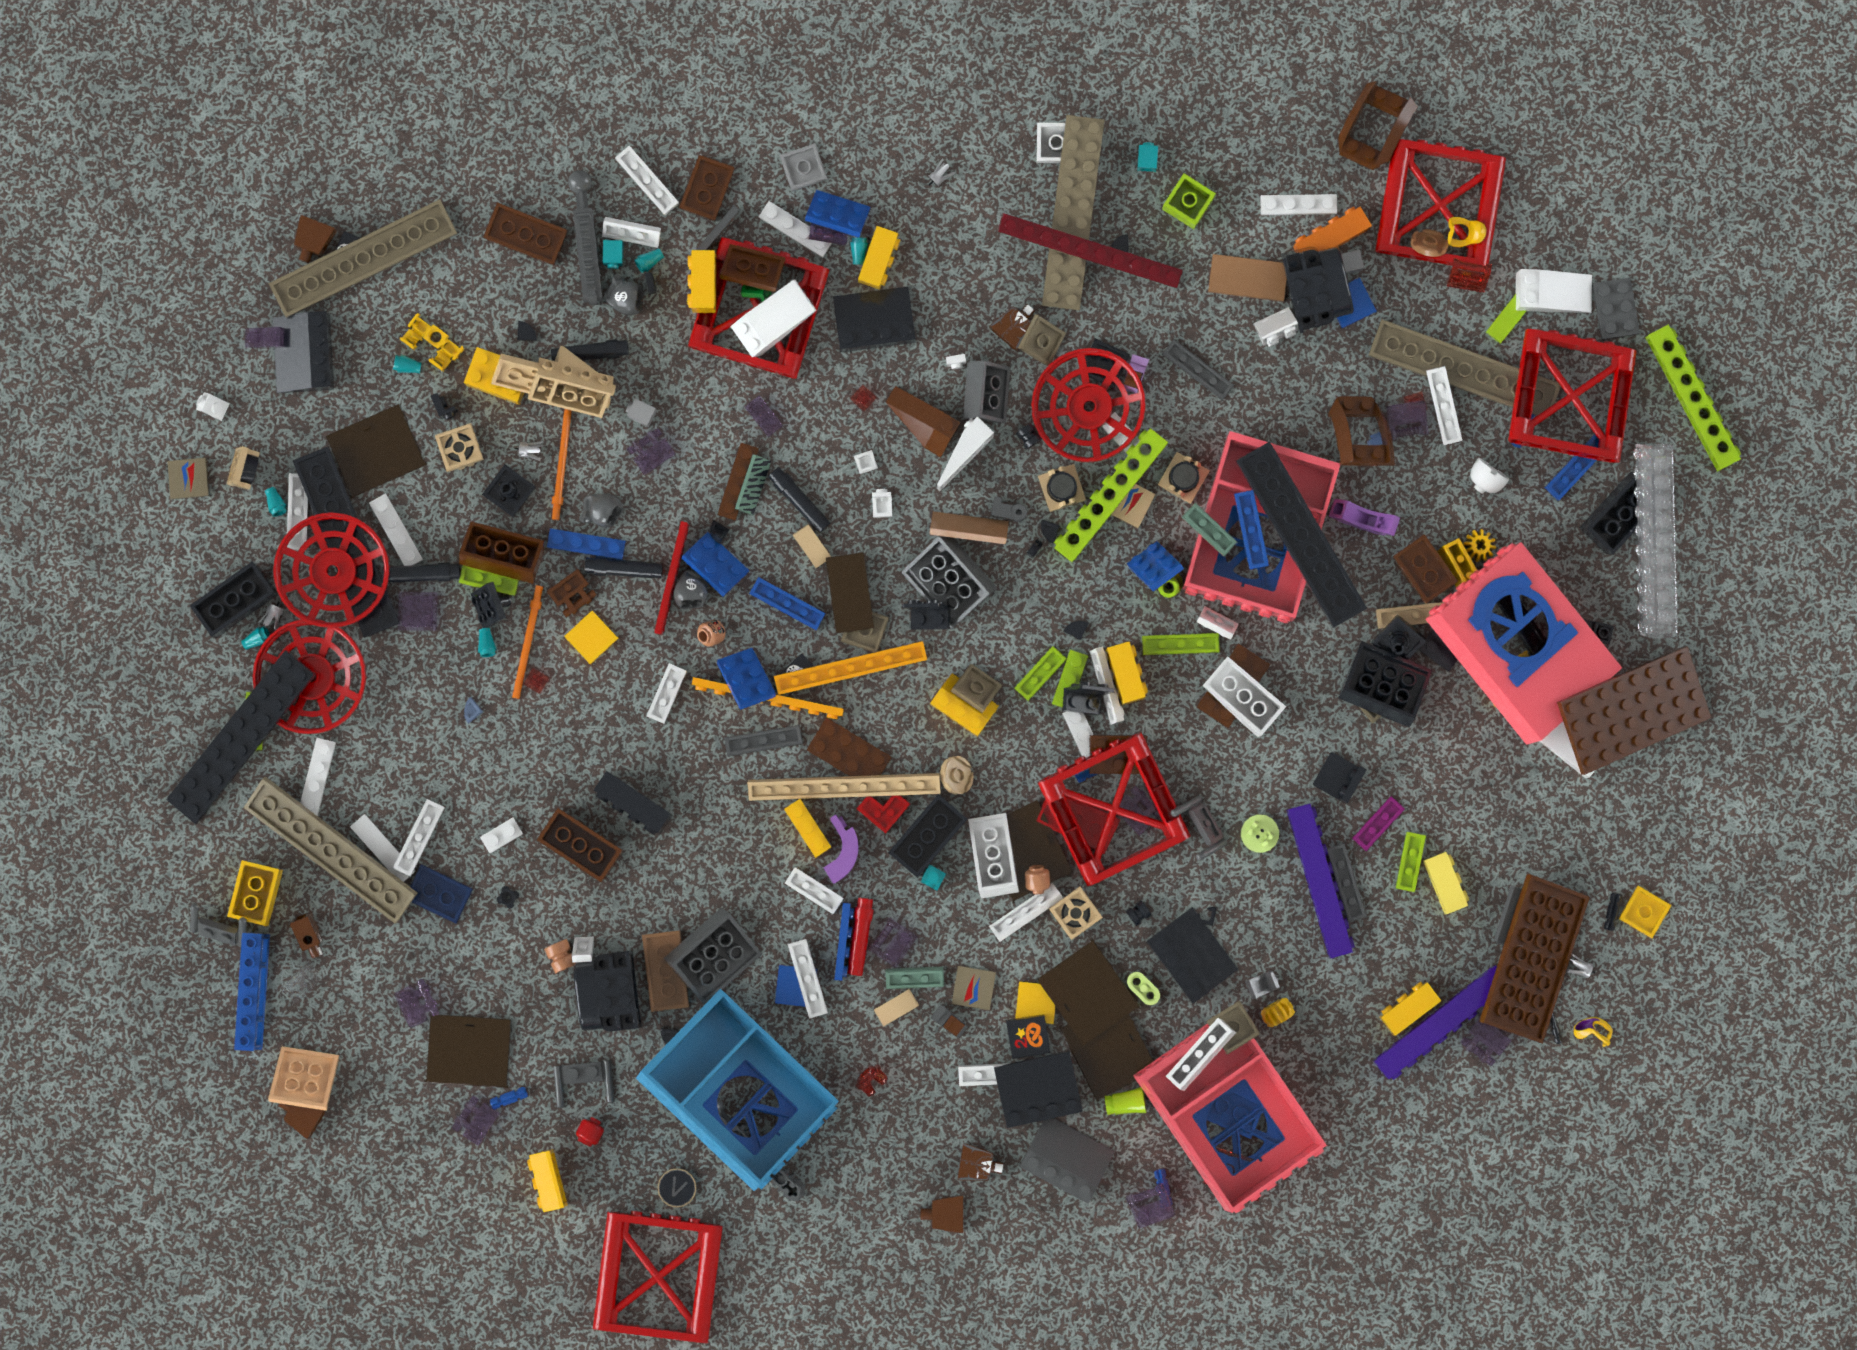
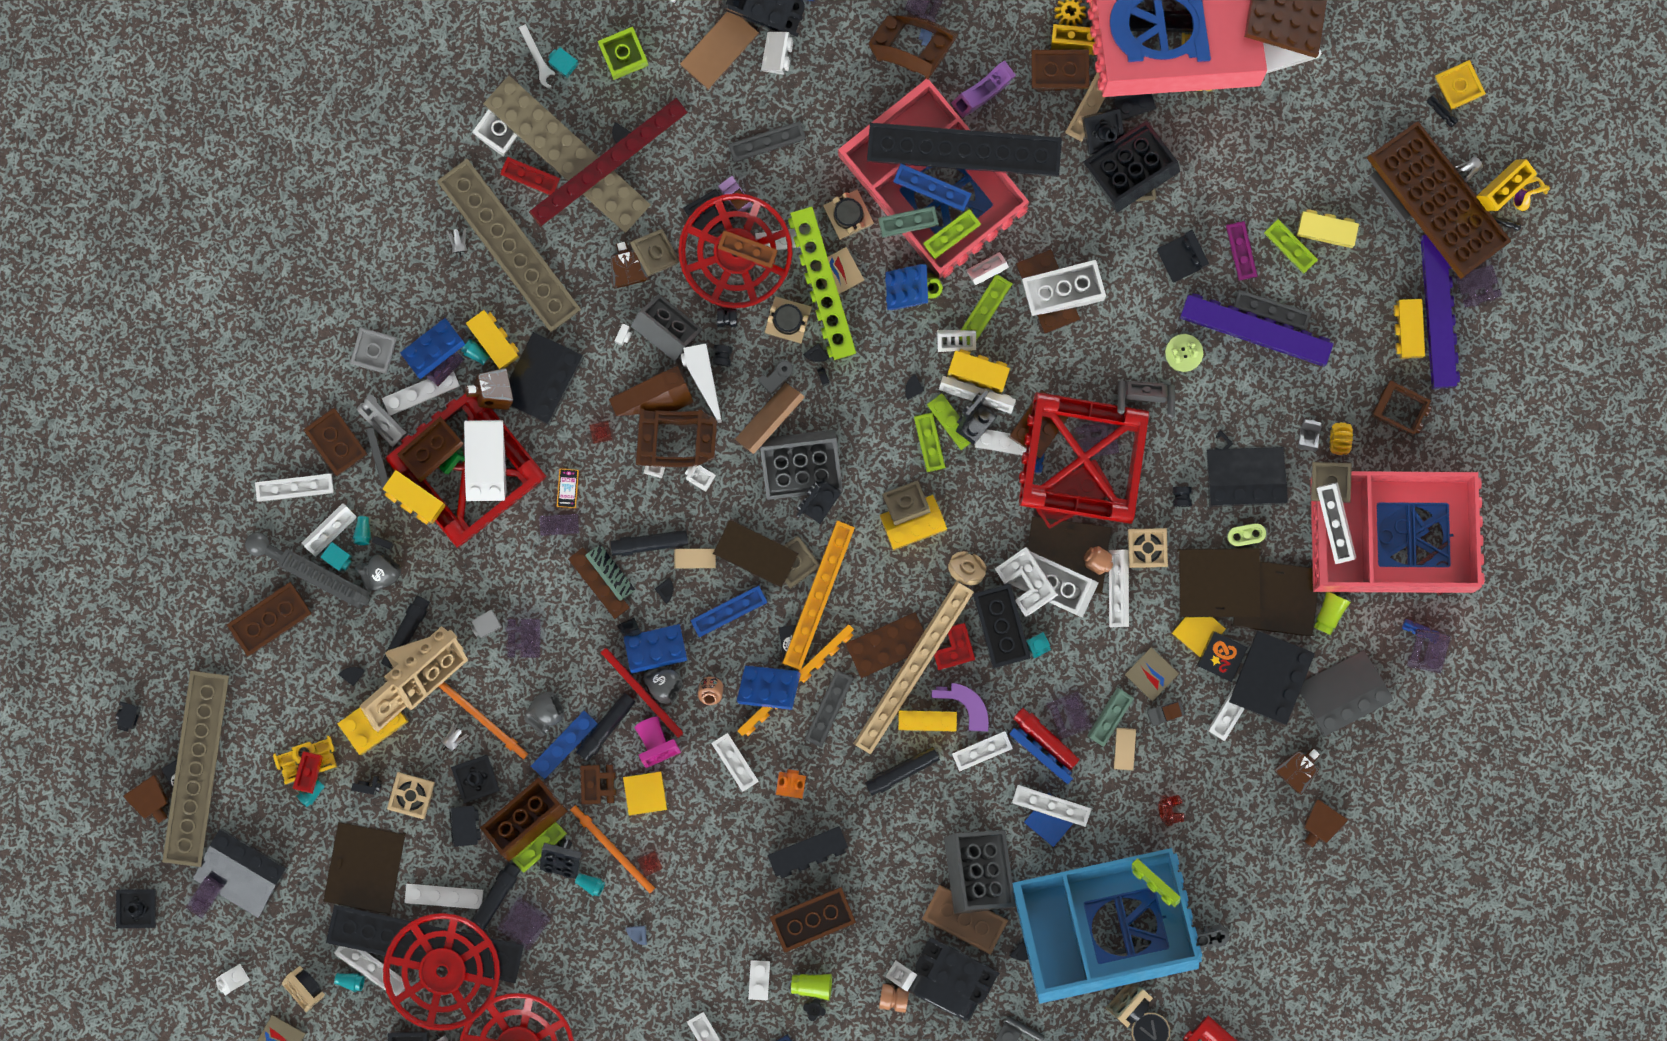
camera: 55 degrees left, 0 degrees up
(213, 283) = (125, 901): none -> black plate
(368, 174) = (127, 716): none -> black brick
(421, 350) = (307, 772): none -> red plate
(463, 507) = (464, 826): none -> black slope
(526, 882) = (812, 985): none -> lime plant
(637, 617) = (655, 743): none -> dark pink plant
(679, 751) = (790, 784): none -> orange brick
(687, 1154) = (1129, 1004): none -> tan piece
(736, 827) = (884, 780): none -> black piece
(749, 212) = (381, 420): none -> light grey plate
(769, 540) = (665, 590): none -> black tile
(798, 402) = (567, 488): none -> tile
(798, 1106) = (1155, 884): none -> lime plate
(836, 284) = (491, 390): none -> torso
(886, 438) = (648, 437): none -> reddish brown wedge
(965, 217) = (509, 245): none -> dark tan plate
(991, 825) = (1040, 588): none -> white plate
(995, 453) = (722, 355): none -> black wheel
(1034, 195) = (530, 176): none -> red plate
(1096, 413) = (748, 249): none -> dark orange plate
(1130, 147) = (544, 70): none -> white piece
(1140, 628) = (955, 333): none -> white slope
(1224, 572) = (952, 234): none -> lime plate
(1333, 1069) = (1386, 394): none -> reddish brown window
(1586, 1007) = (1506, 185): none -> yellow brick

